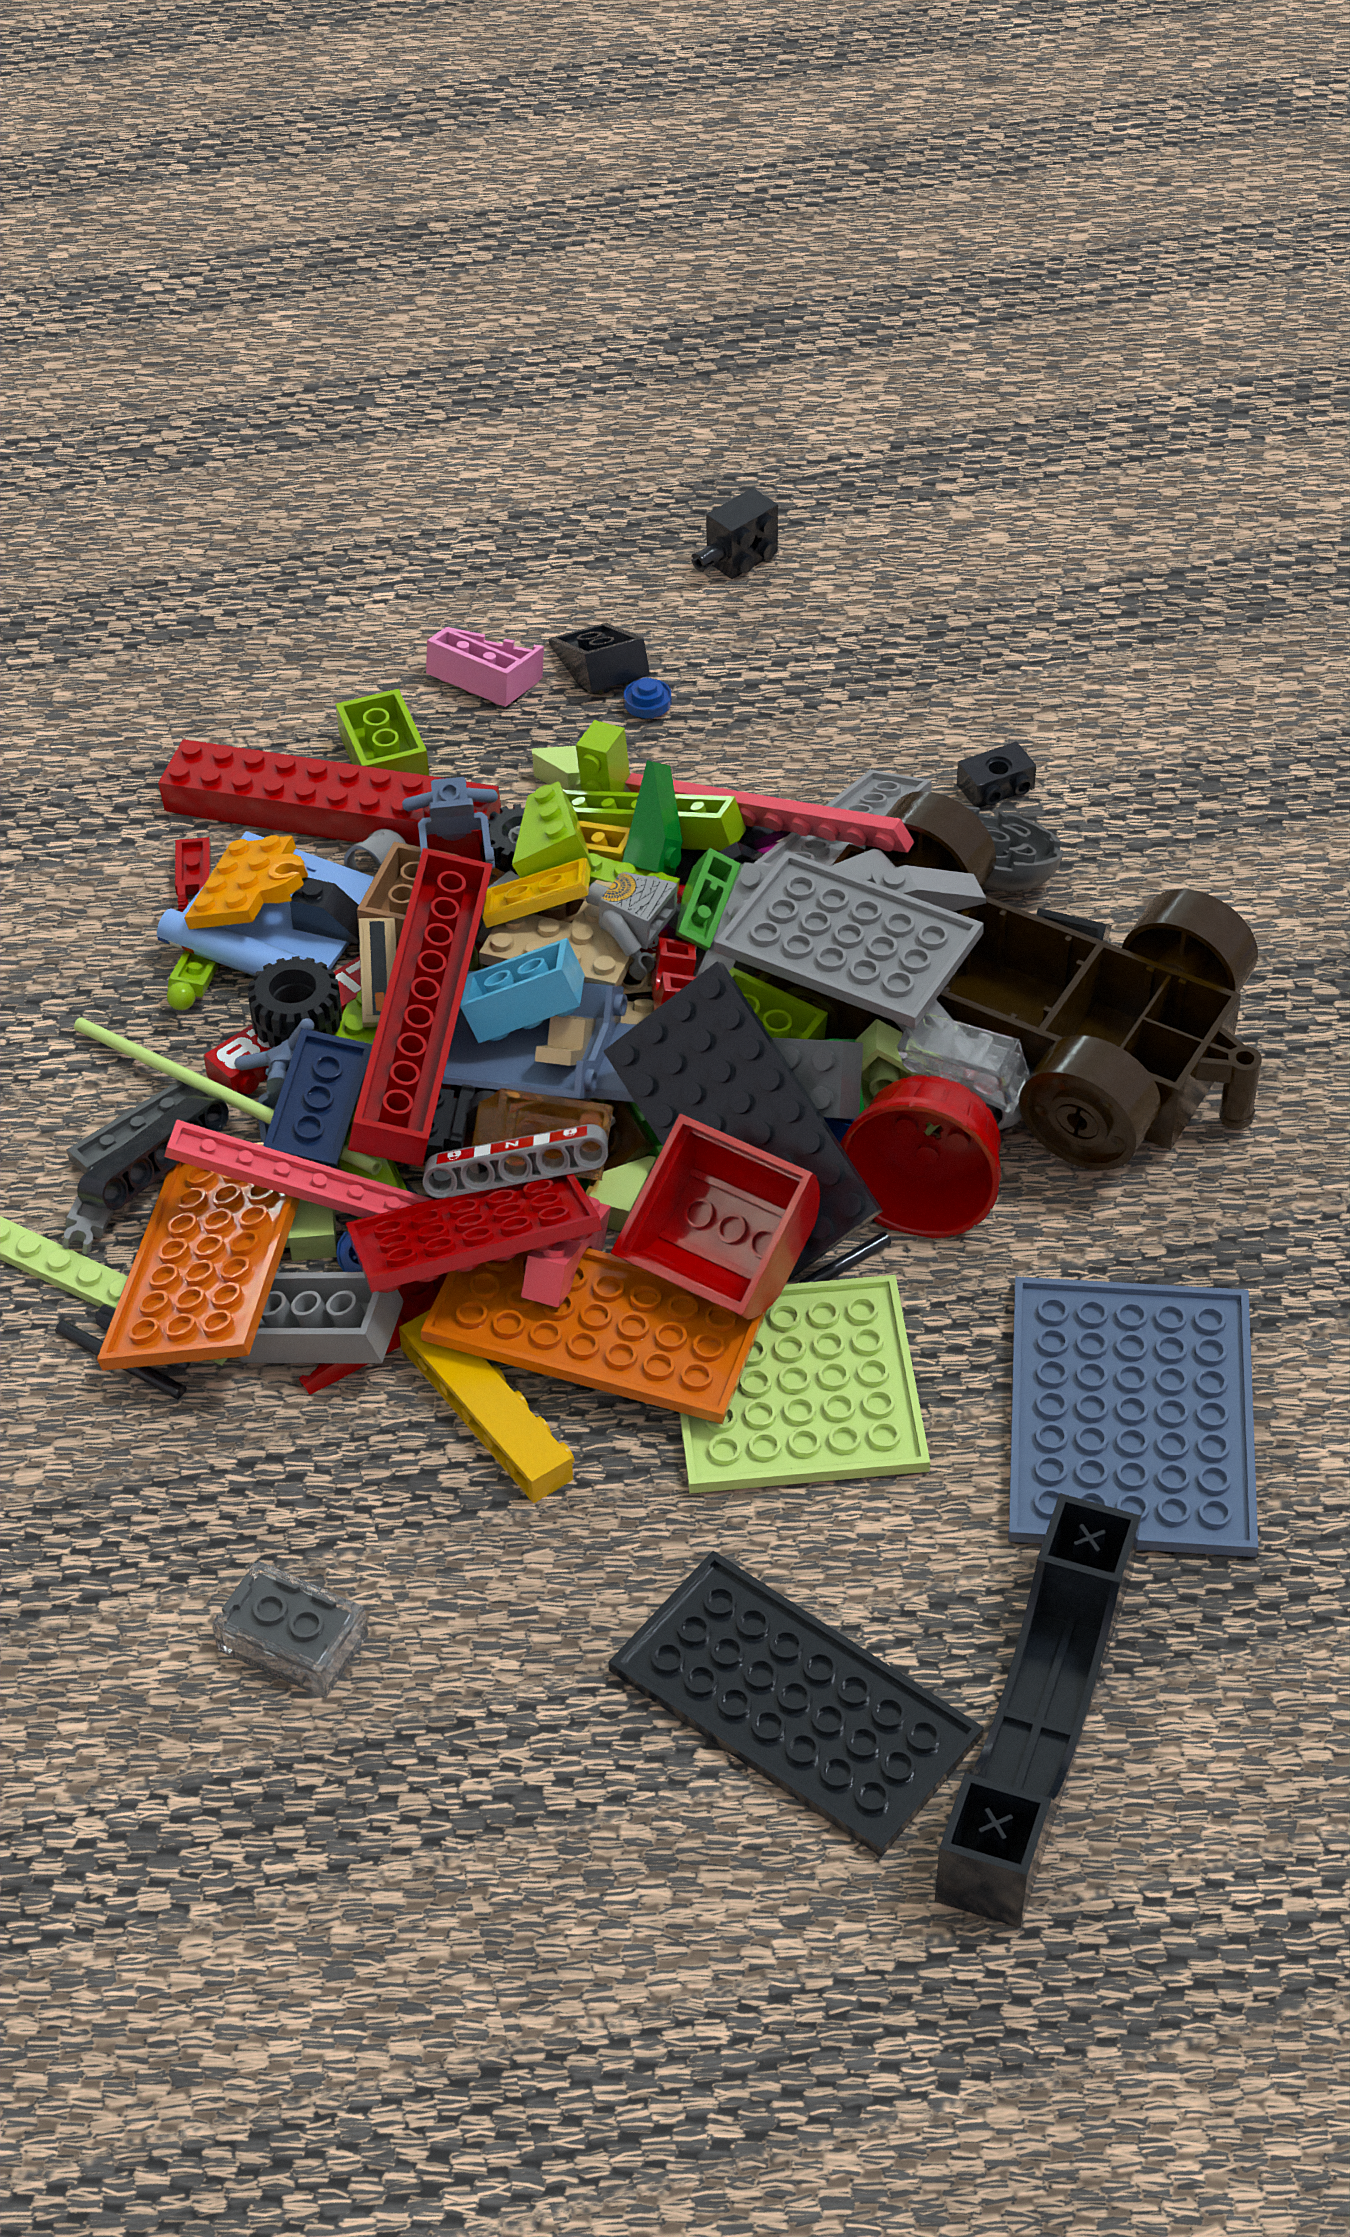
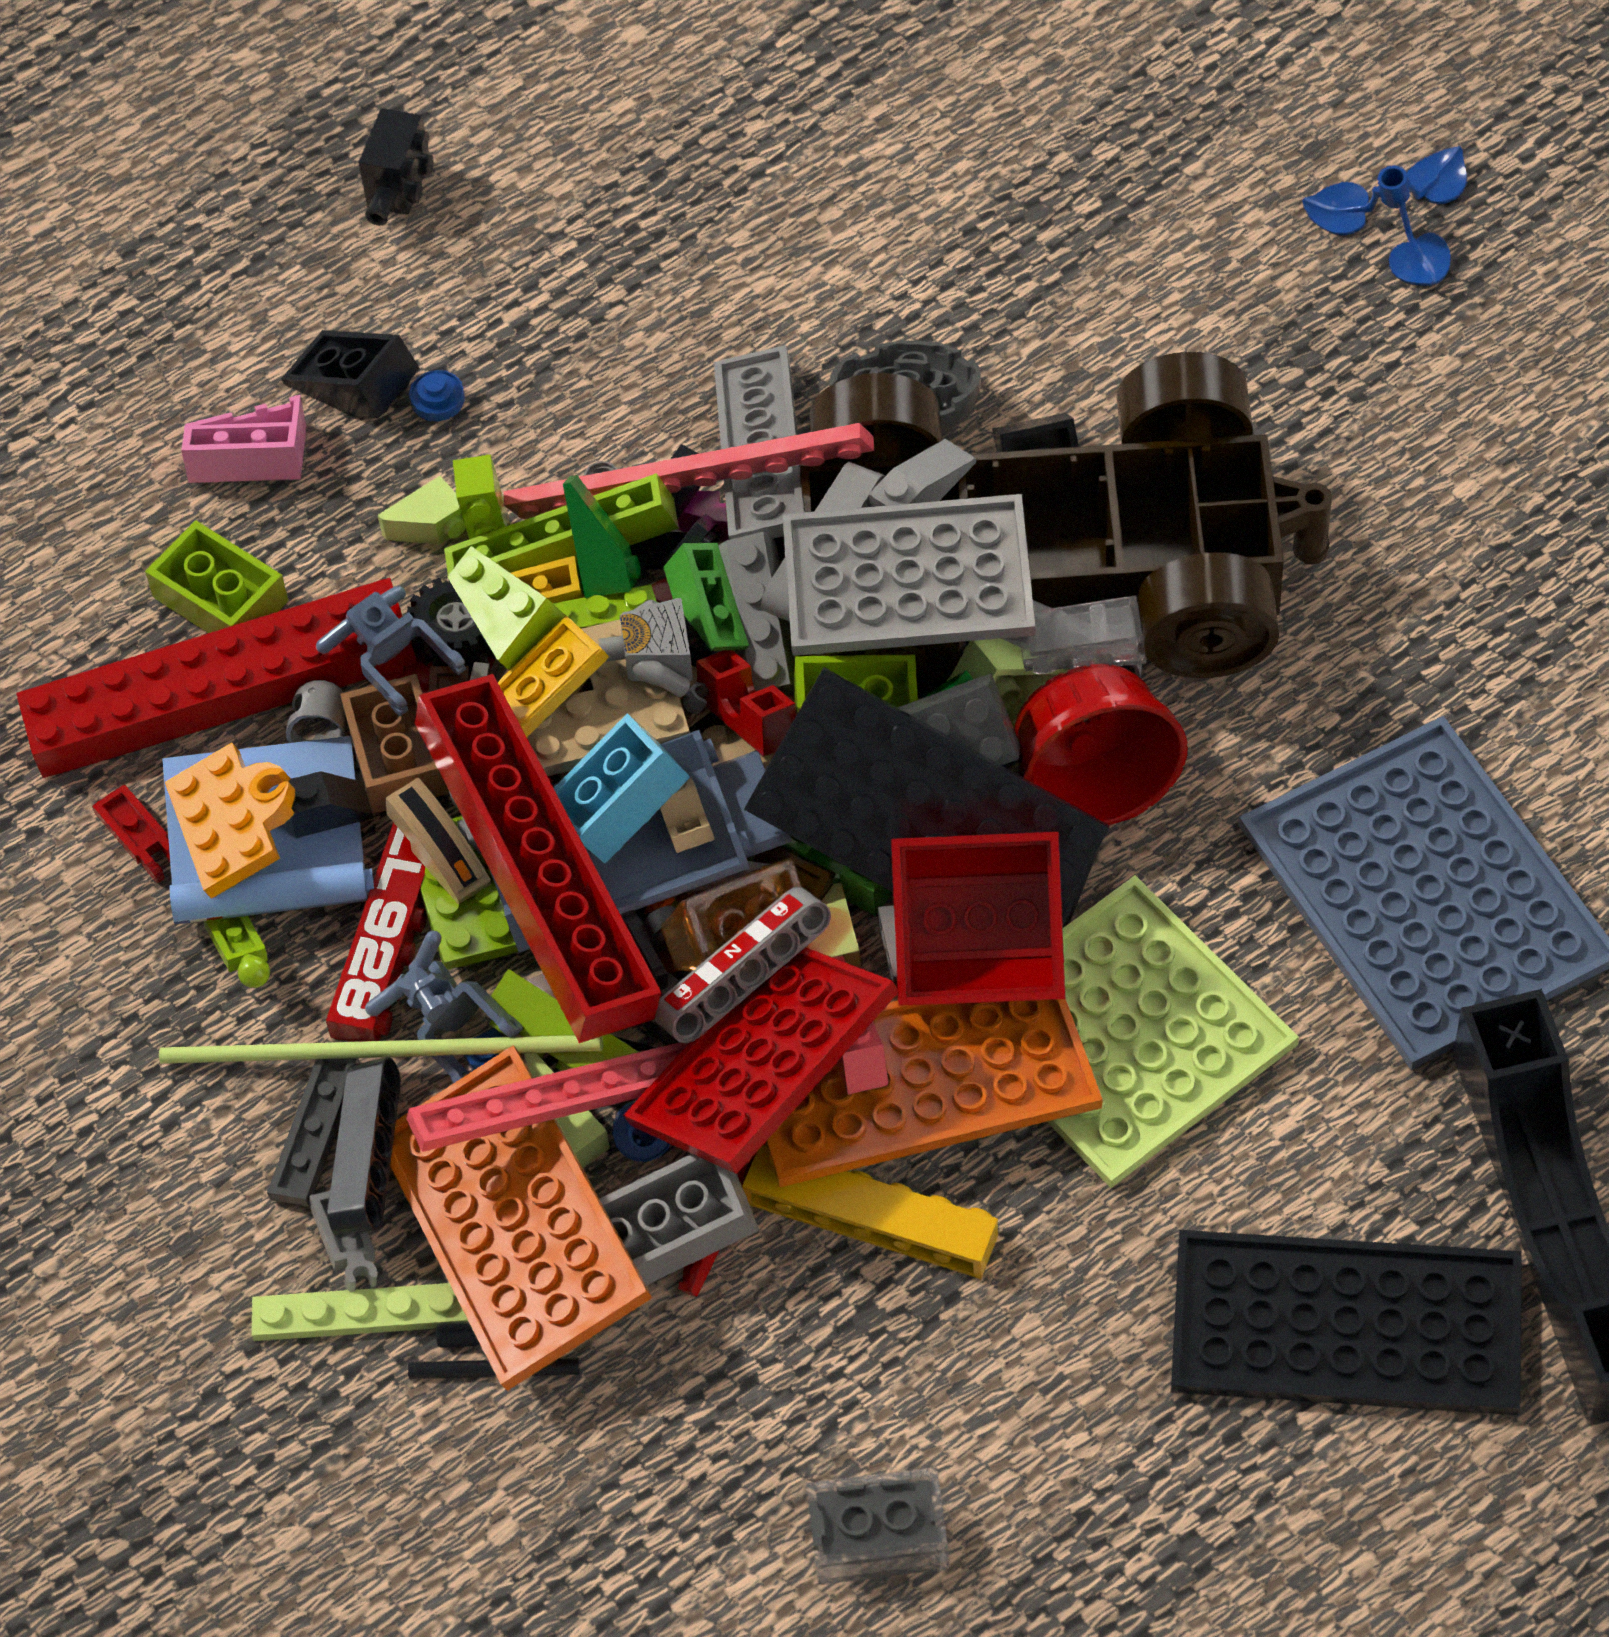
camera: 30 degrees left, 10 degrees up
(288, 994) = (376, 893): black tyre -> none
(319, 1097) = (502, 1006): dark blue plate -> none
(996, 775) = (839, 306): black brick -> none

